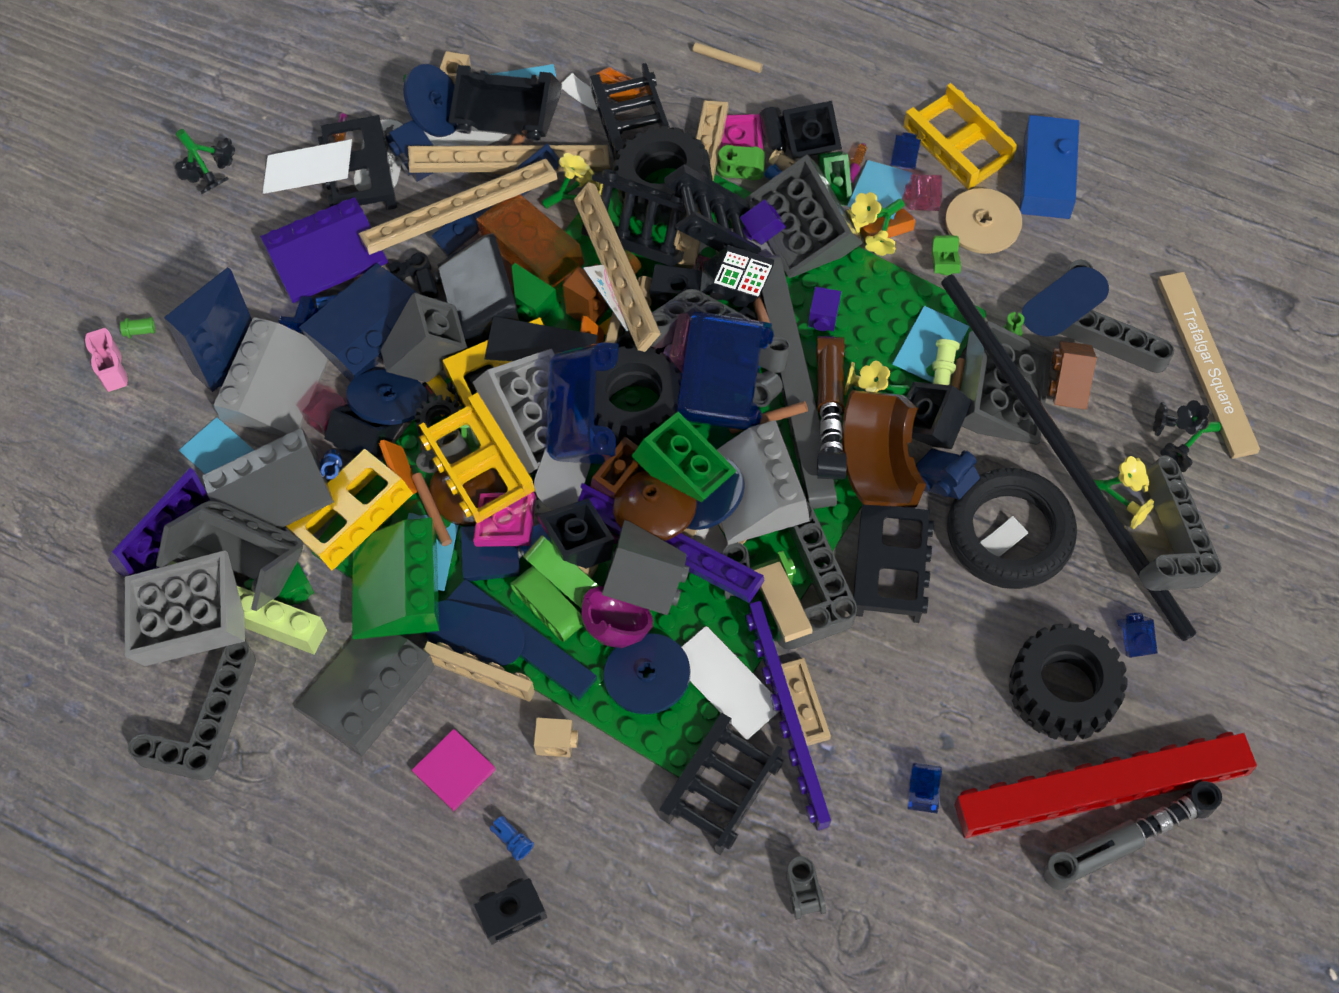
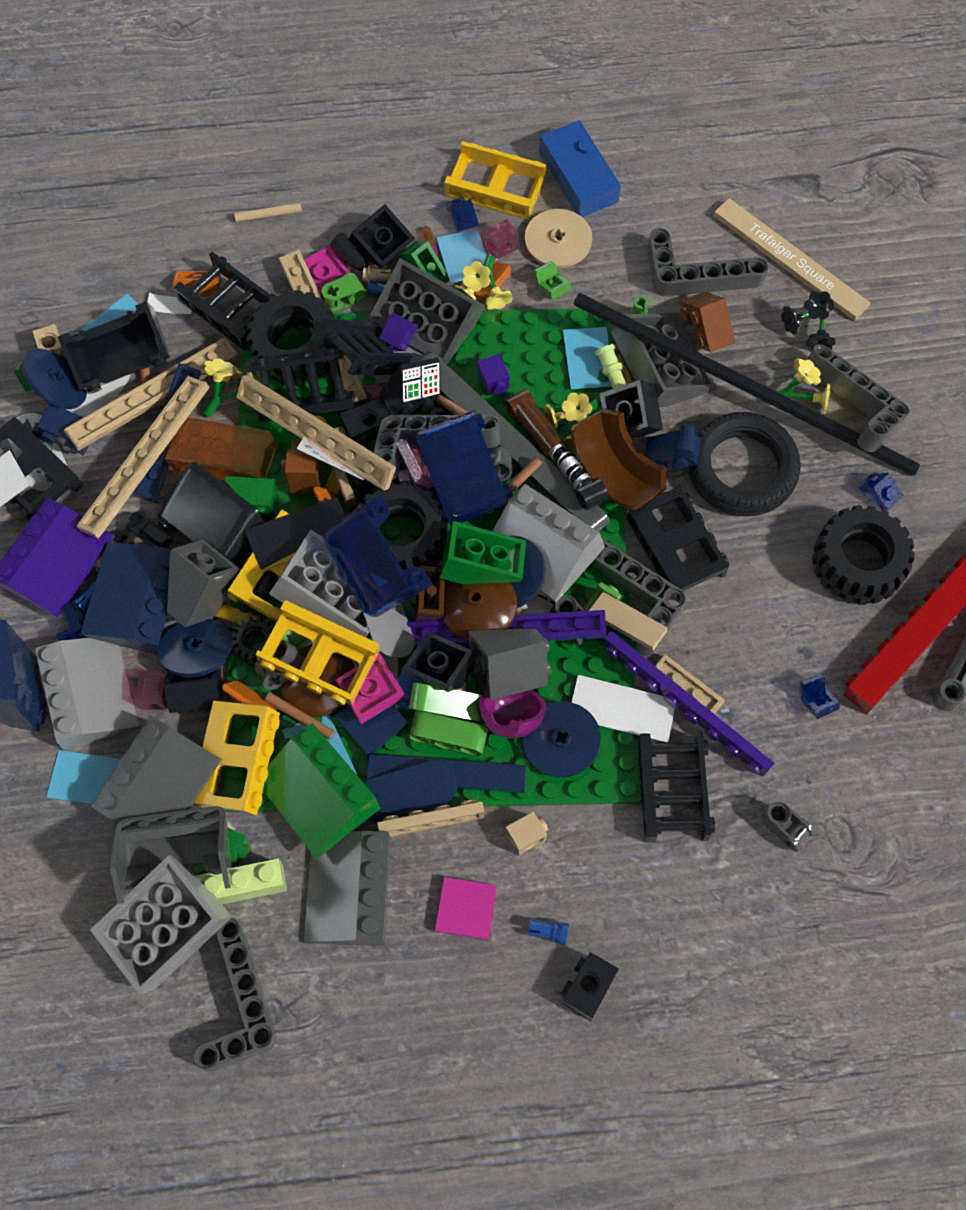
camera: 35 degrees left, 5 degrees up
(141, 547) = (87, 871): dark purple slope -> none
(331, 464) = (192, 729): blue pin -> none
(1004, 537) = (742, 473): white sticker -> none
(1065, 301) = (666, 268): dark blue sticker -> none

